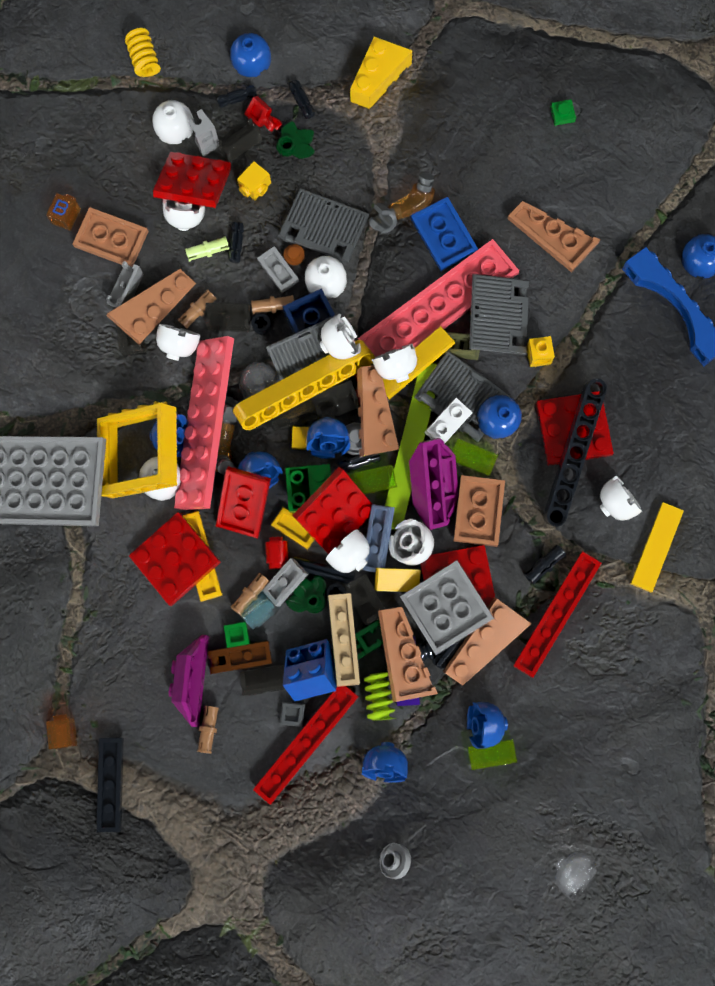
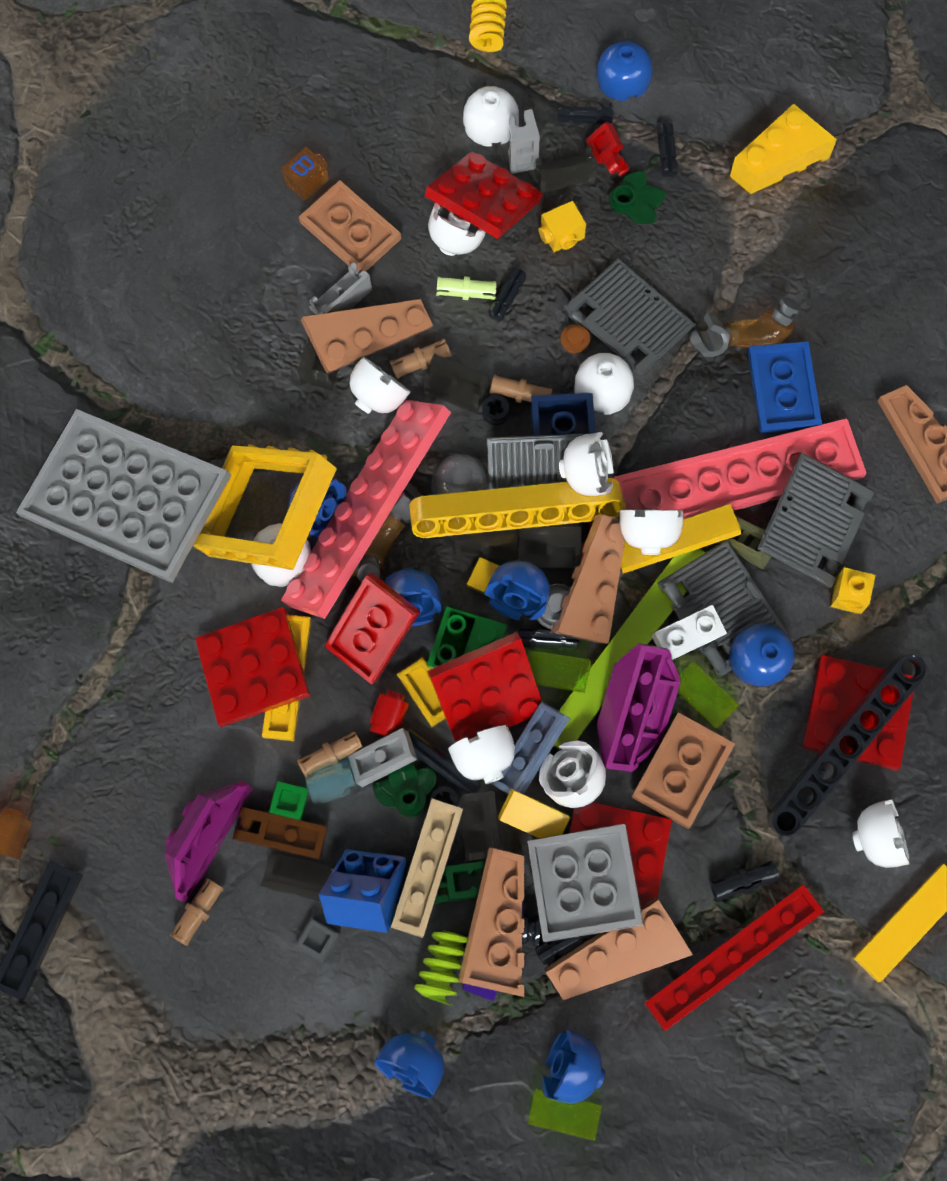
camera: 20 degrees right, 5 degrees down
(278, 269) = (546, 349): light grey plate -> none
(305, 744) = (316, 988): red plate -> none

